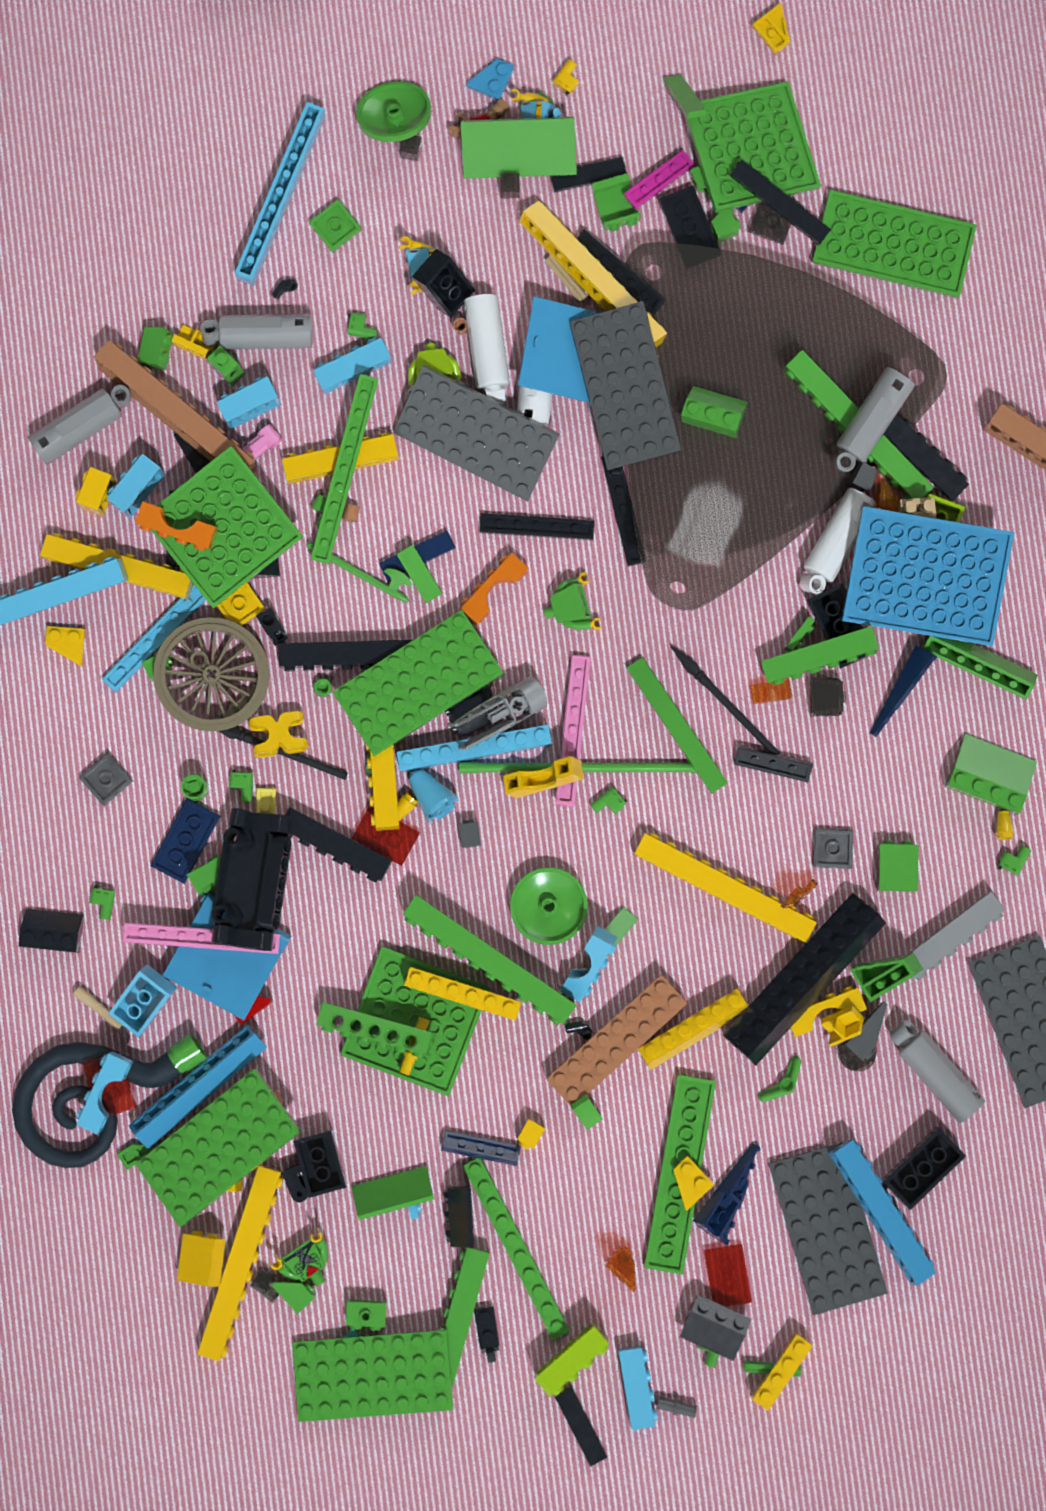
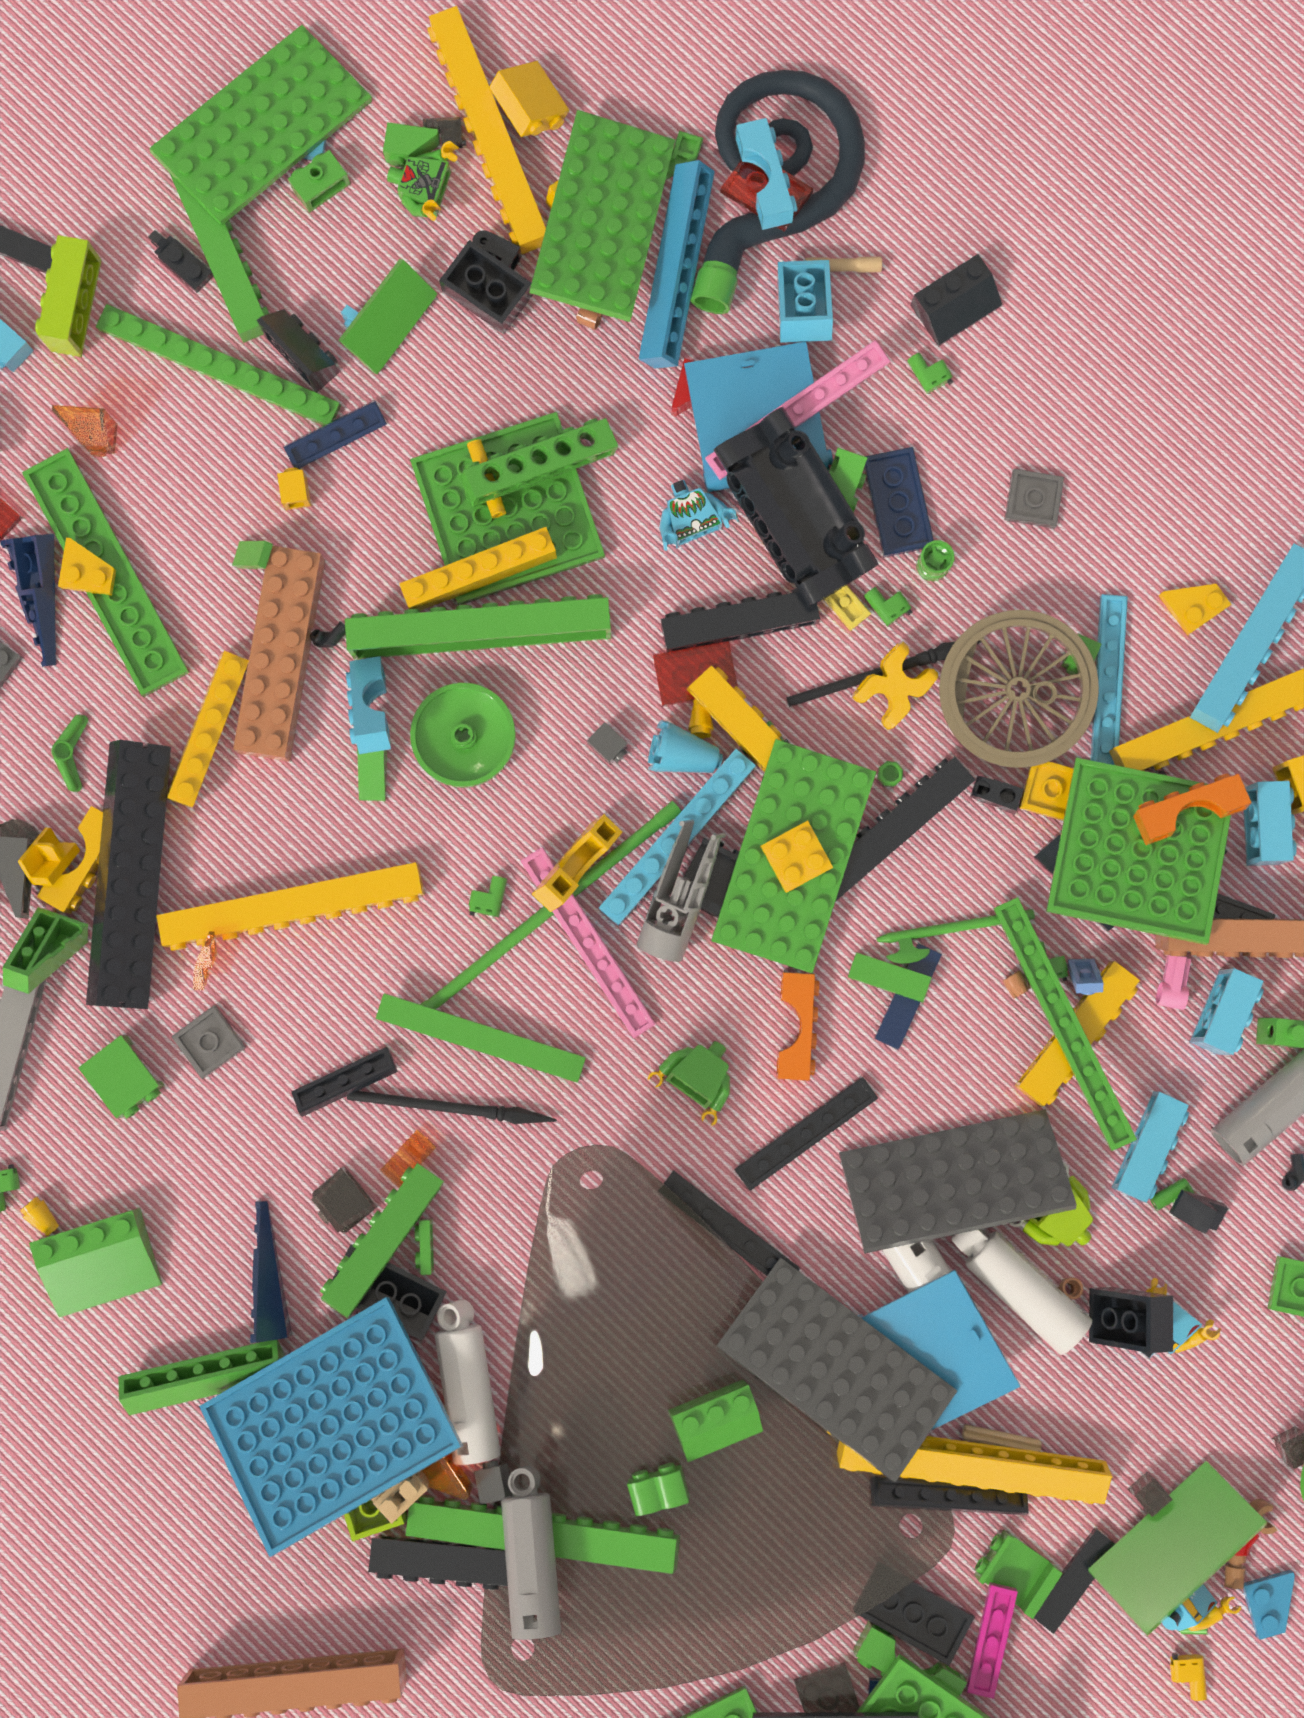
camera: 140 degrees right, 0 degrees up
(310, 485) = (1085, 976): none -> medium blue plate
(312, 928) = (692, 515): none -> medium azure torso
(356, 310) = (1198, 1211): none -> black slope
(417, 679) = (796, 856): none -> yellow plate
(776, 400) = (658, 1489): none -> bright green brick

